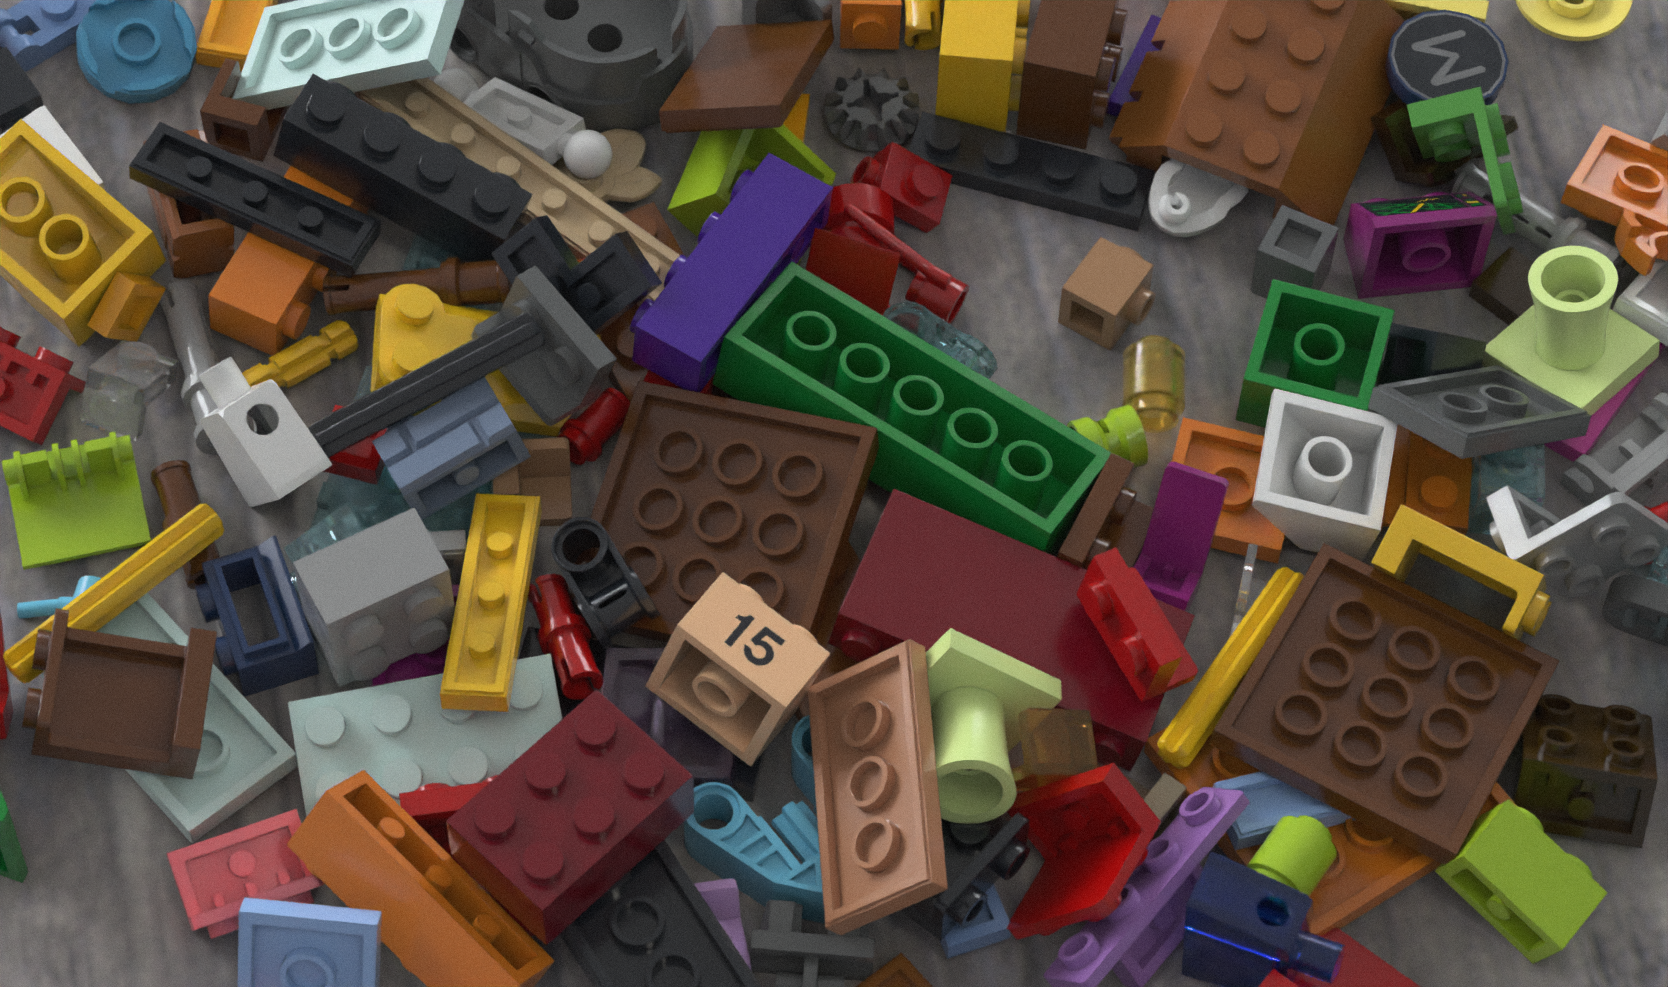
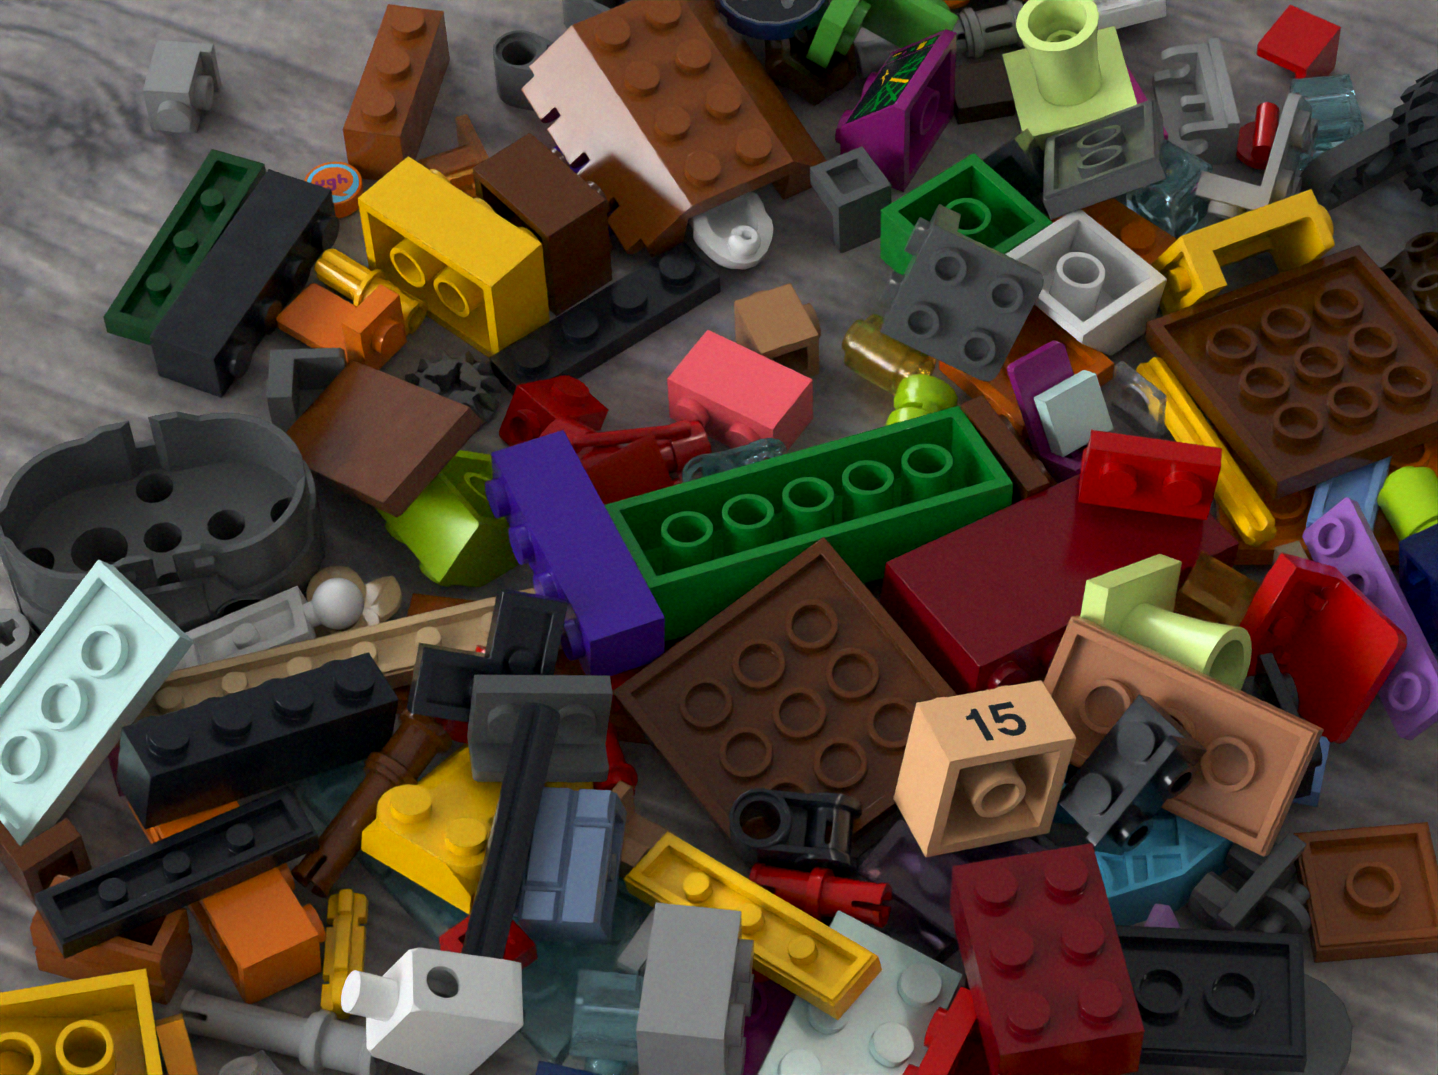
camera: 50 degrees left, 5 degrees down
(808, 781) = (1131, 777): none -> black bracket
(1019, 303) = (739, 394): none -> coral brick
(1186, 545) = (1072, 411): none -> light aqua tile
(1213, 384) = (958, 298): none -> dark grey bracket

